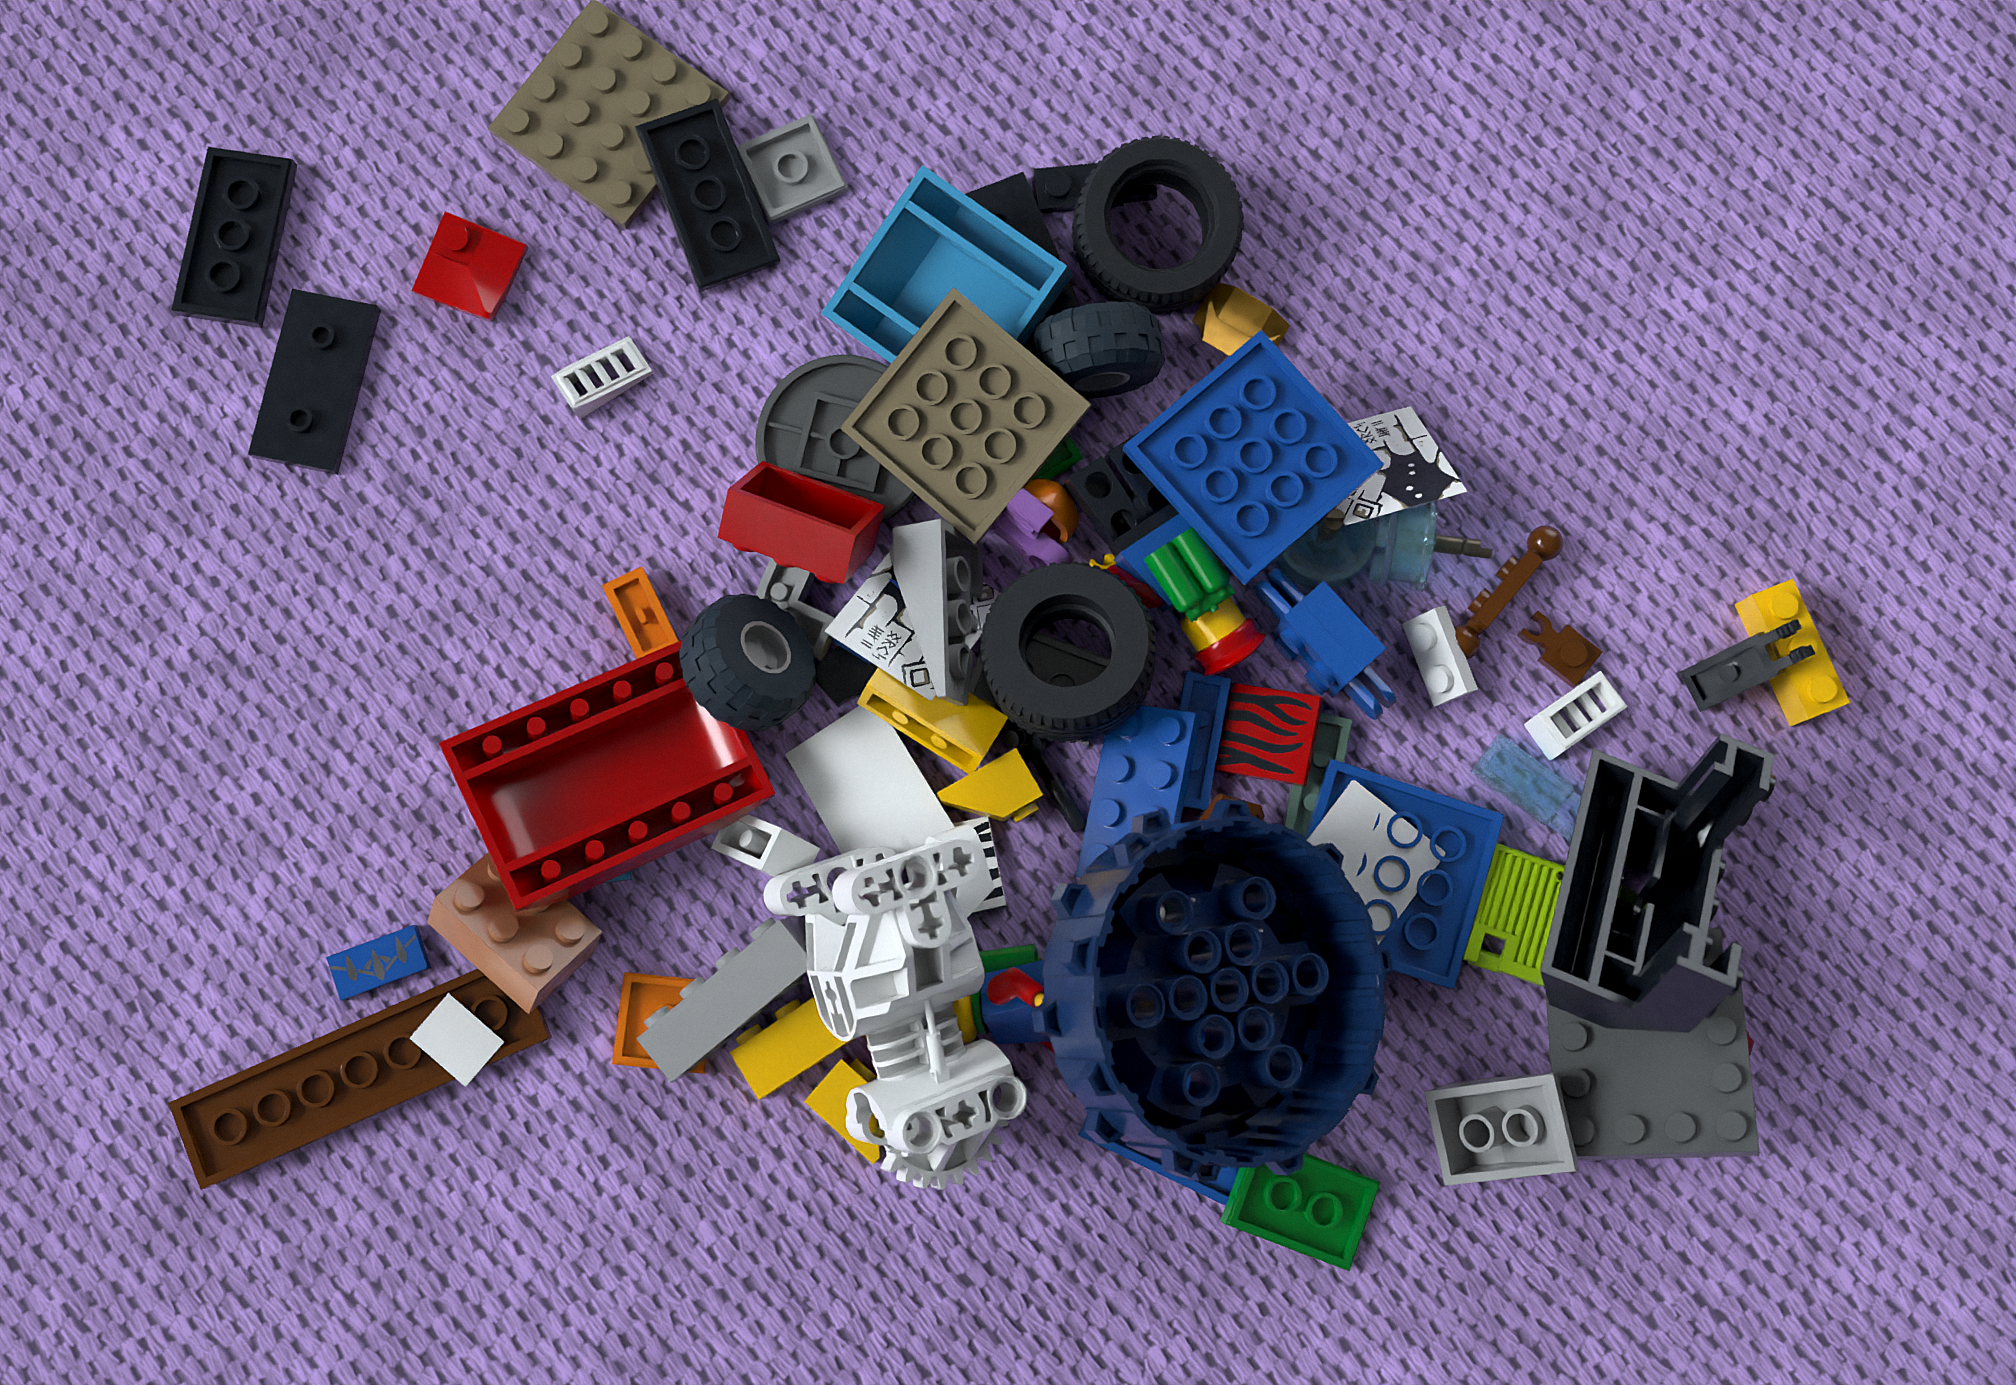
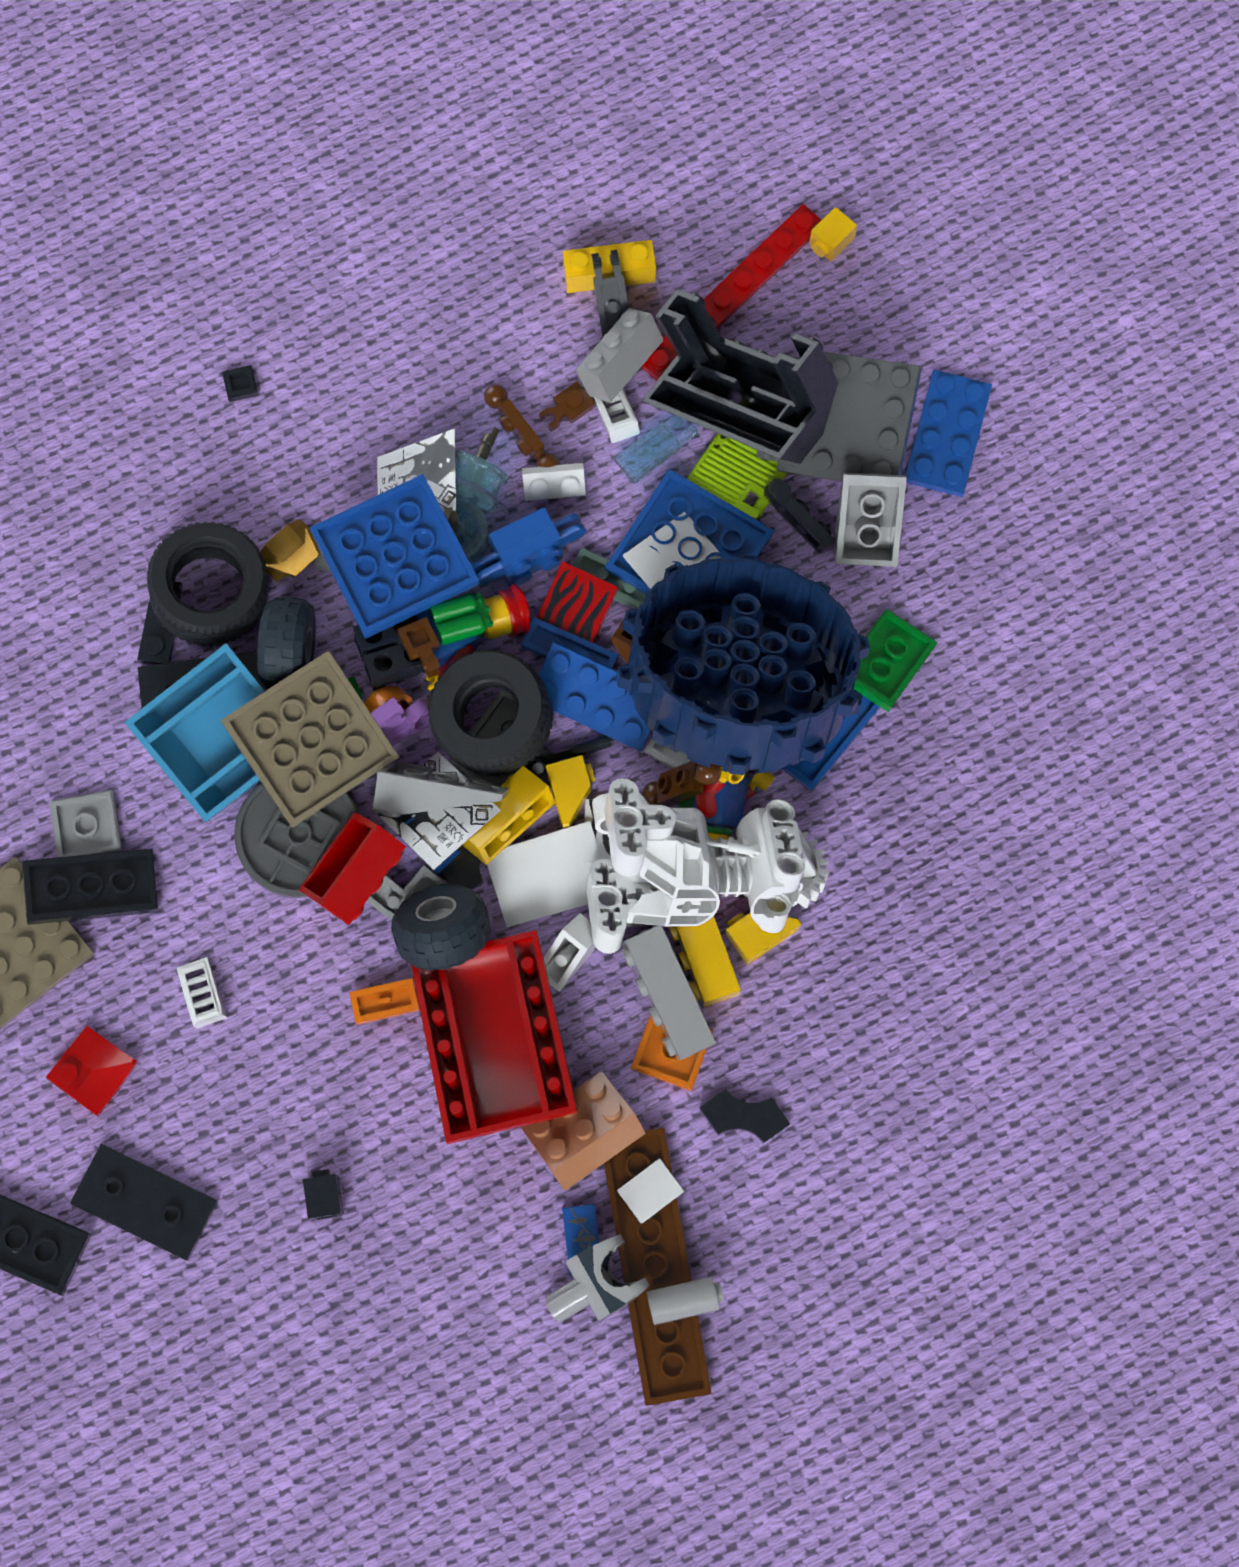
camera: 75 degrees left, 5 degrees down
(310, 1122) = (684, 1300): none -> light grey brick
(312, 995) = (593, 1284): none -> light grey connector
(363, 604) = (323, 1195): none -> black brick
(593, 1166) = (759, 1119): none -> black tile
(1024, 941) = (681, 783): none -> reddish brown plate
(1137, 526) = (420, 642): none -> reddish brown plate
(1464, 194) = (240, 383): none -> black tile
(1485, 1018) = (797, 515): none -> black hinge
(1656, 700) = (619, 354): none -> light grey brick
(1681, 1215) = (948, 433): none -> blue plate
(1836, 858) = (746, 279): none -> red plate
(1944, 969) = (832, 234): none -> yellow brick

